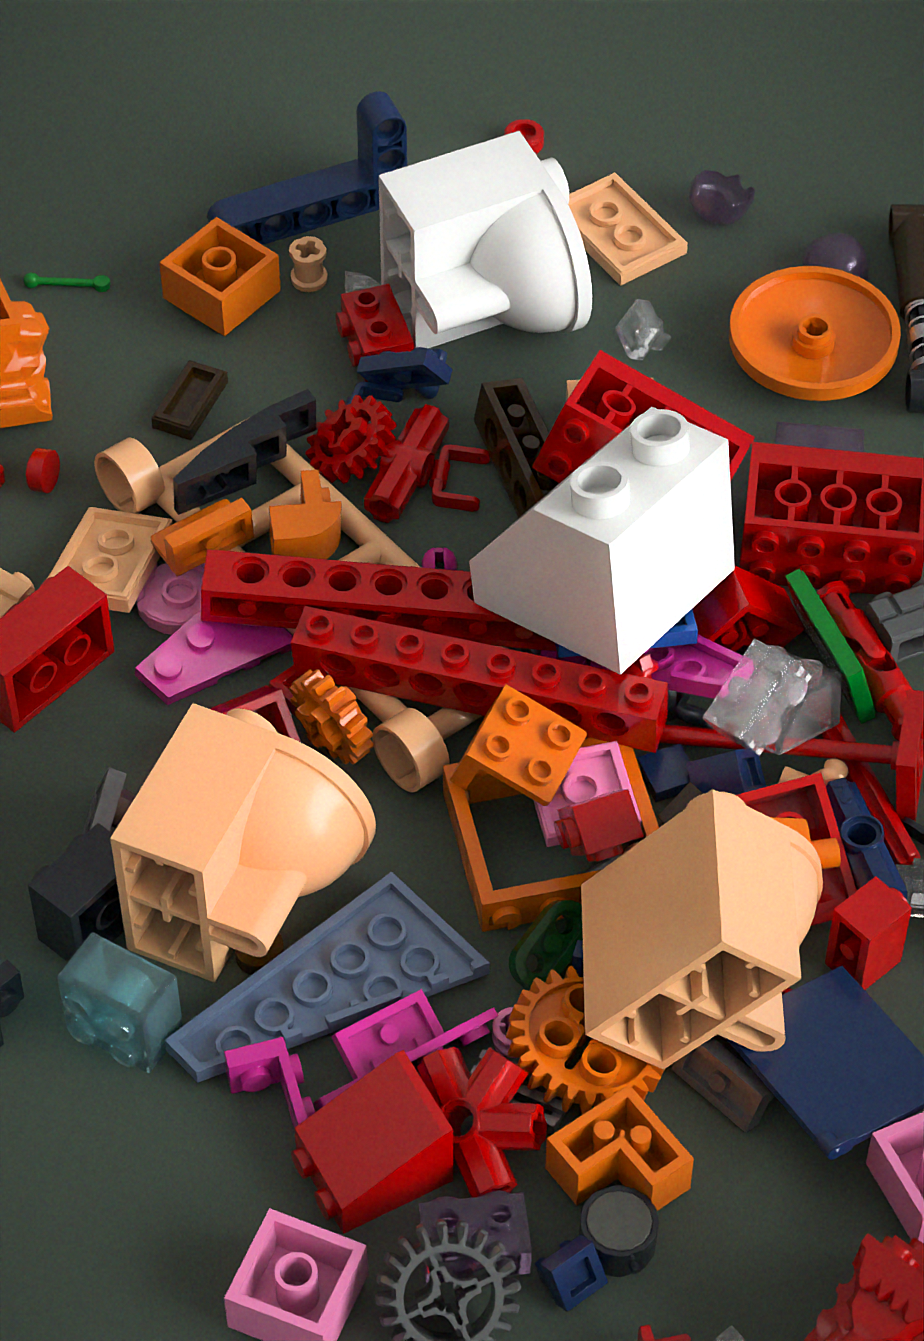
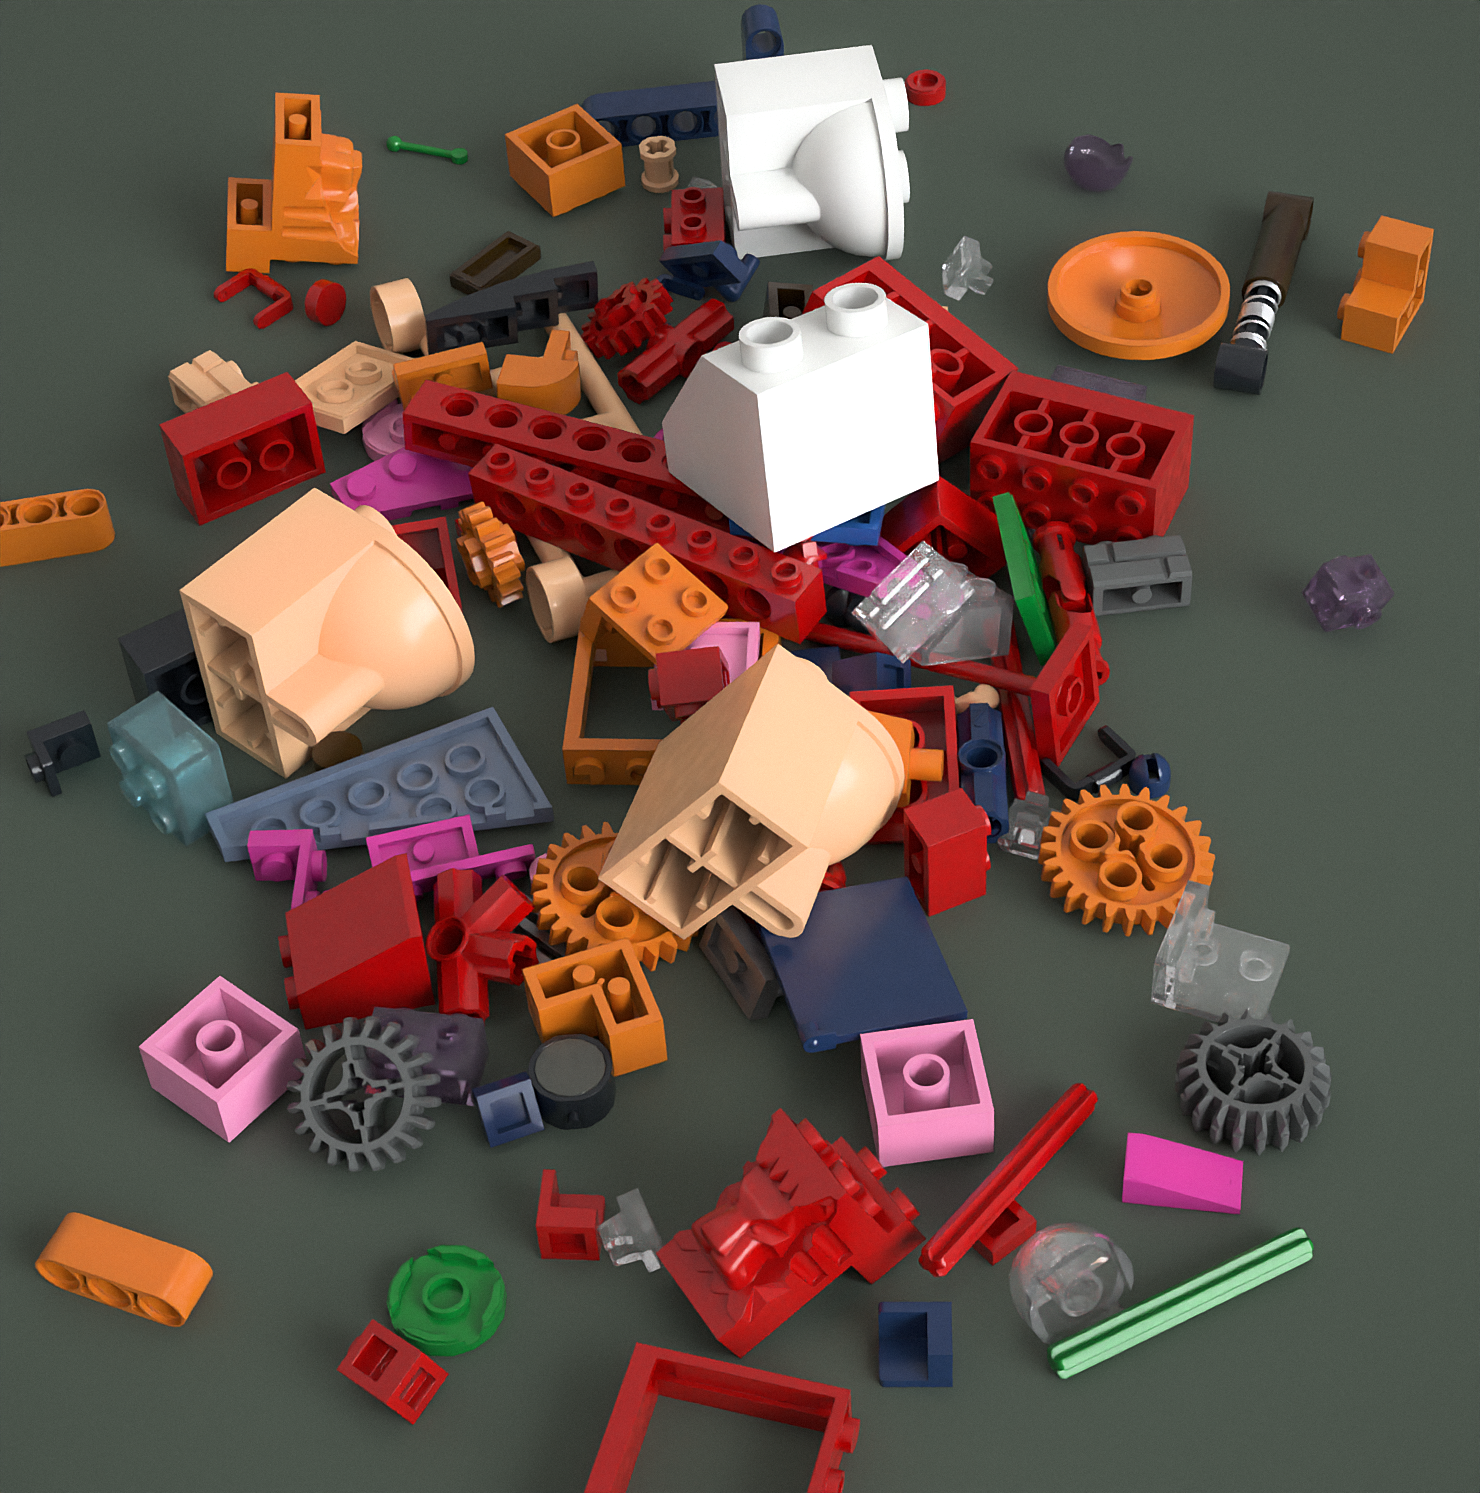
camera: 20 degrees right, 5 degrees down
(546, 943) = (610, 795): dark green plate -> none
(623, 229) = (984, 179): light nougat tile -> none
(838, 252) = (1203, 229): clear purple hair -> none

